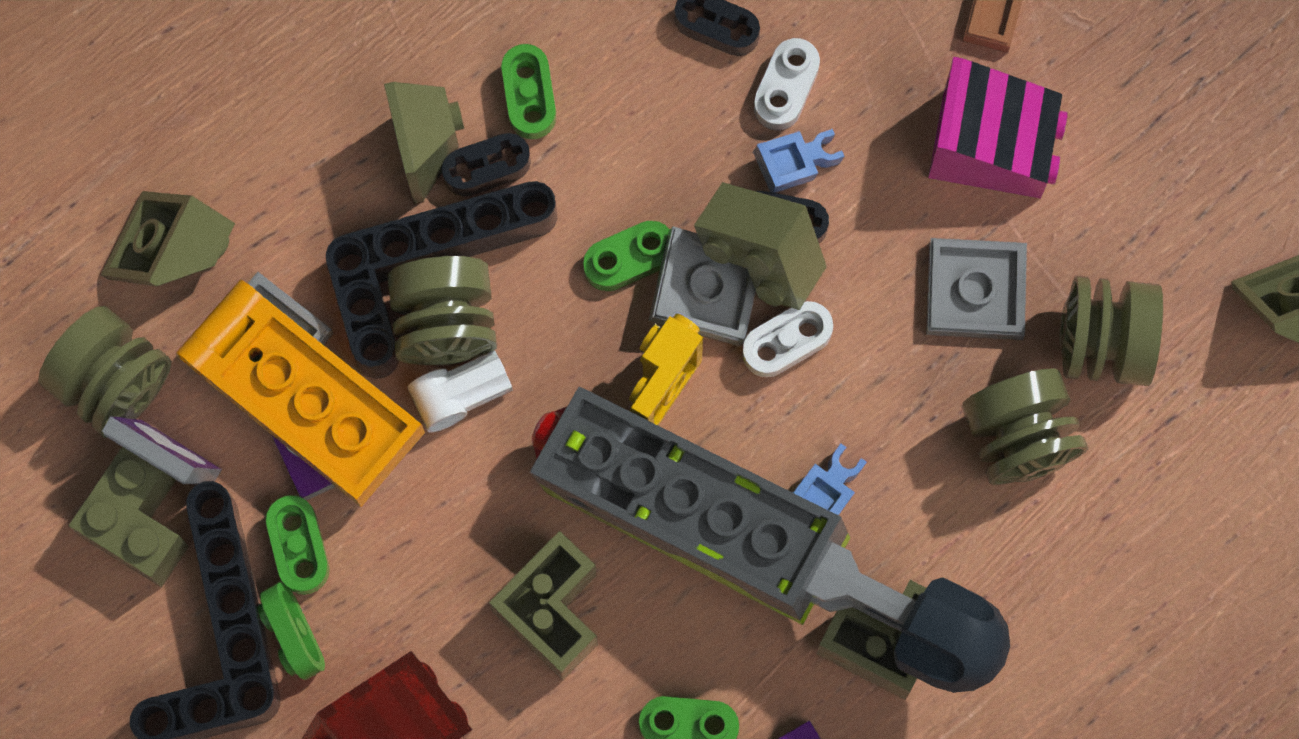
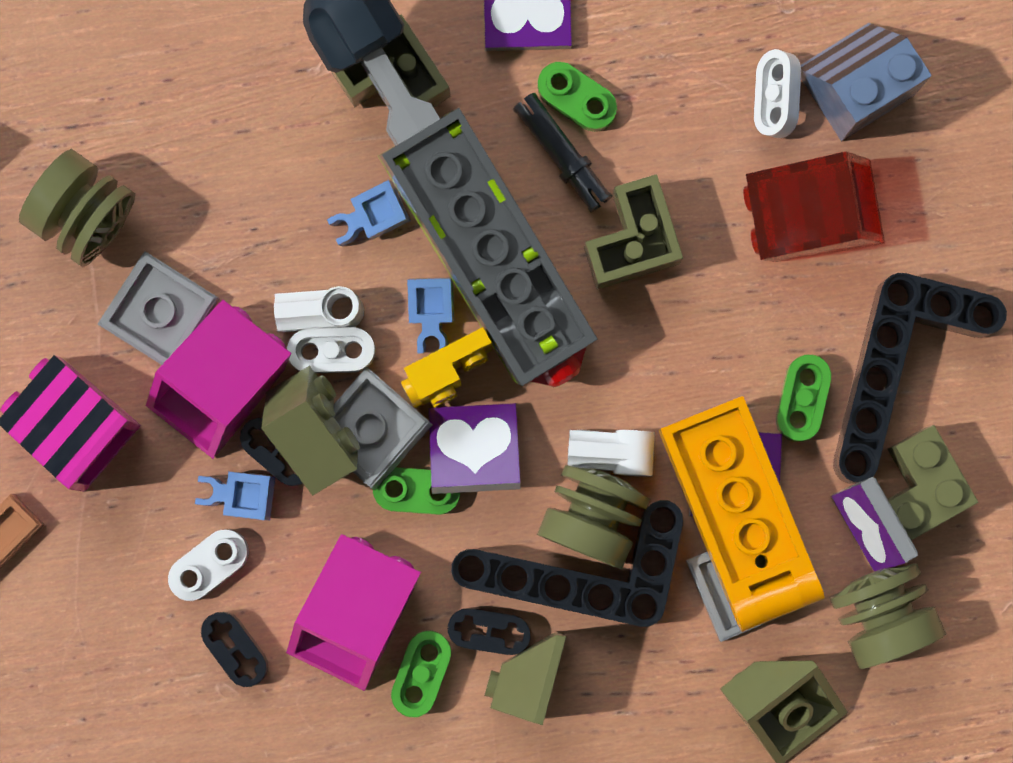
camera: 150 degrees left, 10 degrees up
(284, 616) = (842, 341): bright green plate -> none
(593, 319) = (474, 448): none -> tile
(625, 113) = (352, 611): none -> dark pink slope
(670, 657) = (573, 166): none -> black pin
(714, 430) = (430, 304): none -> medium blue plate
(825, 367) = (313, 310): none -> white piece
(880, 255) = (217, 377): none -> dark pink slope
(1022, 420) = (191, 169): olive wheel -> none

